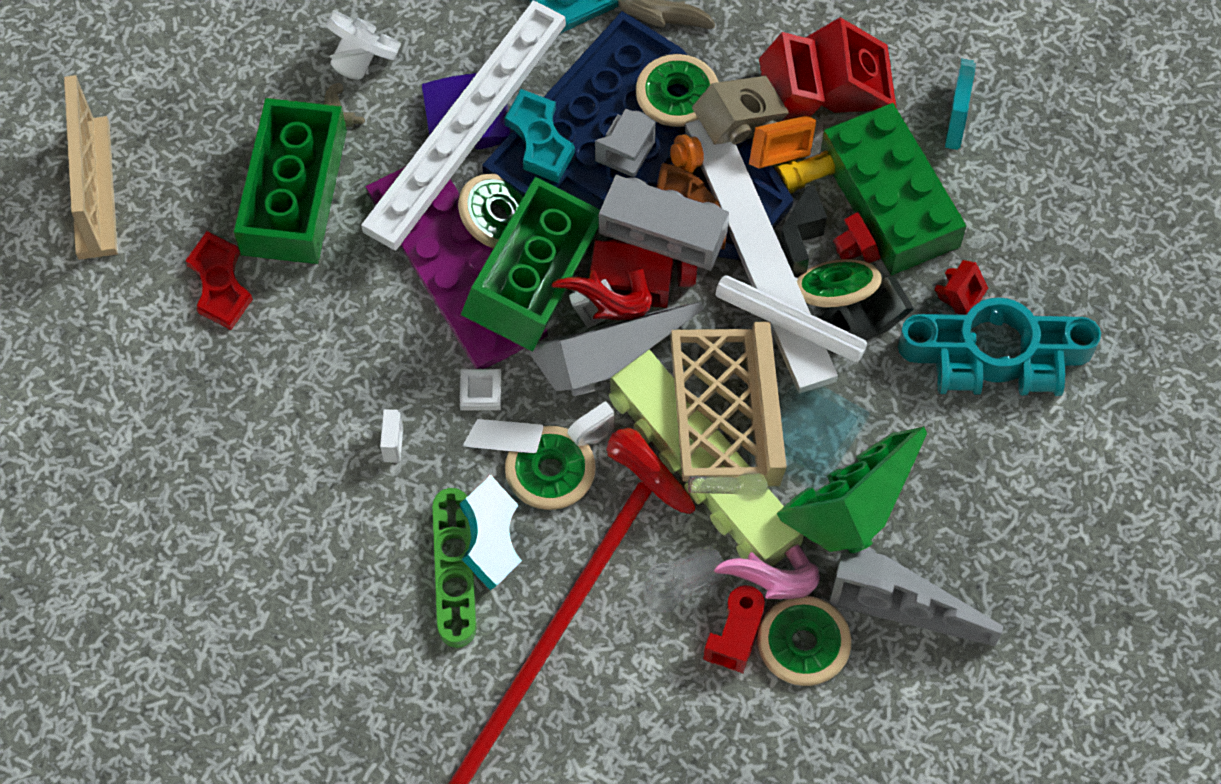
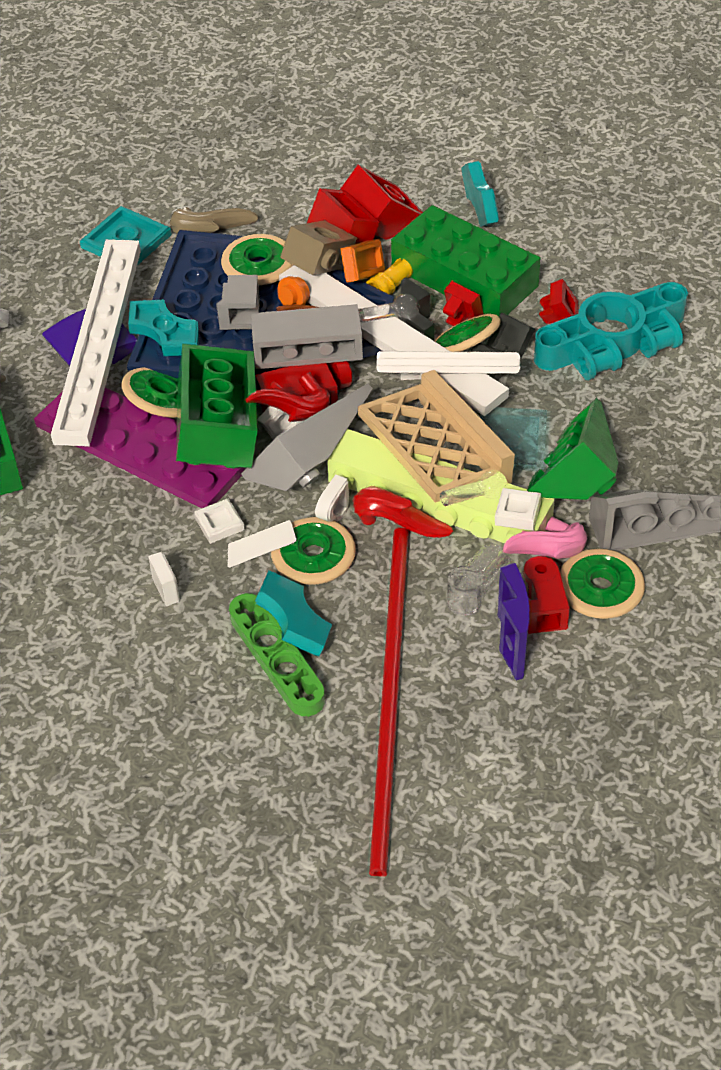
camera: 25 degrees left, 15 degrees down
(683, 652) = (514, 618): none -> dark purple slope
(757, 528) = (518, 509): none -> white tile
(787, 225) = (403, 307): none -> clear bar

